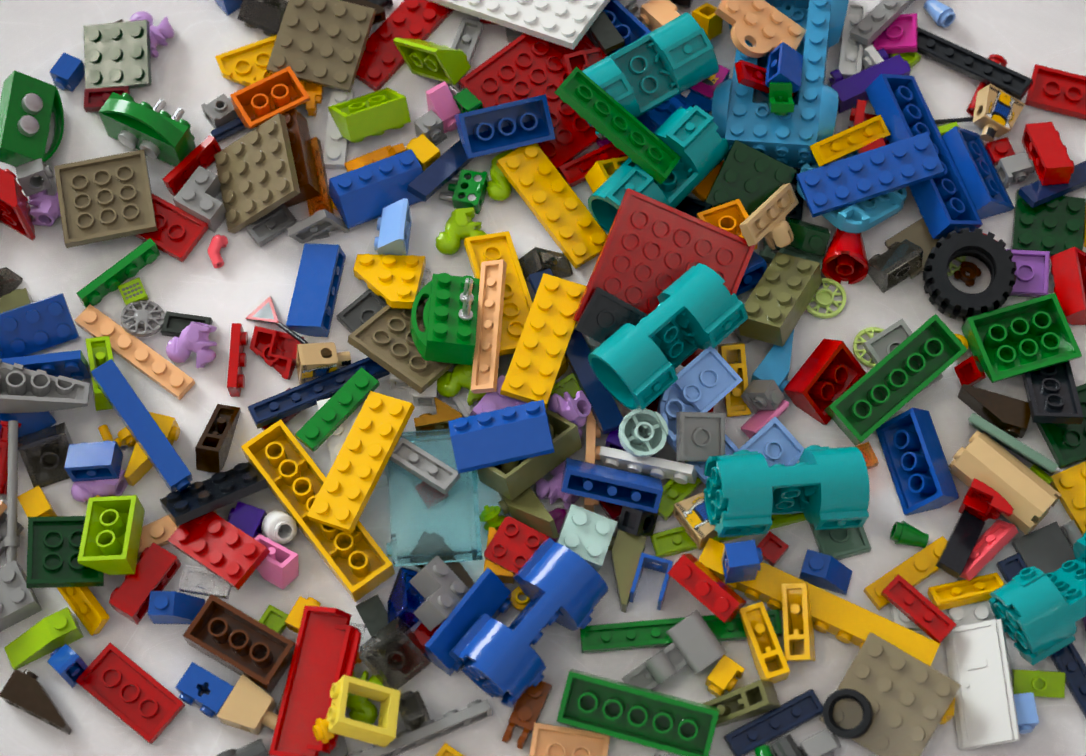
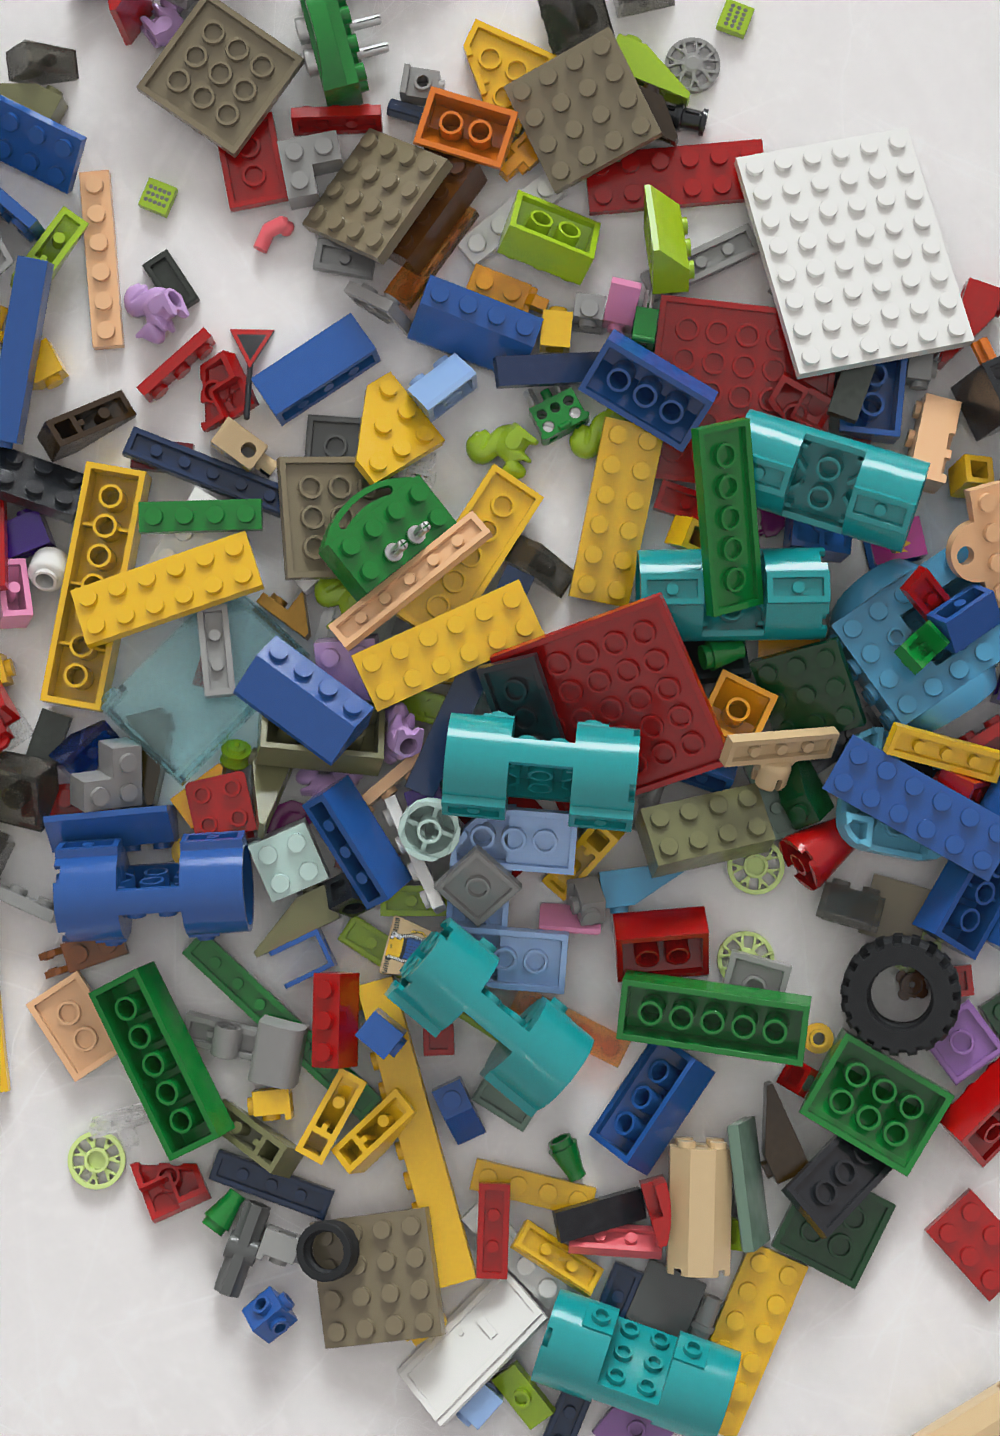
camera: 50 degrees right, 20 degrees up
(118, 273) = (149, 165): green plate -> none
(142, 318) = (139, 233): light grey wheel -> none
(689, 204) = (719, 653): none -> green cone

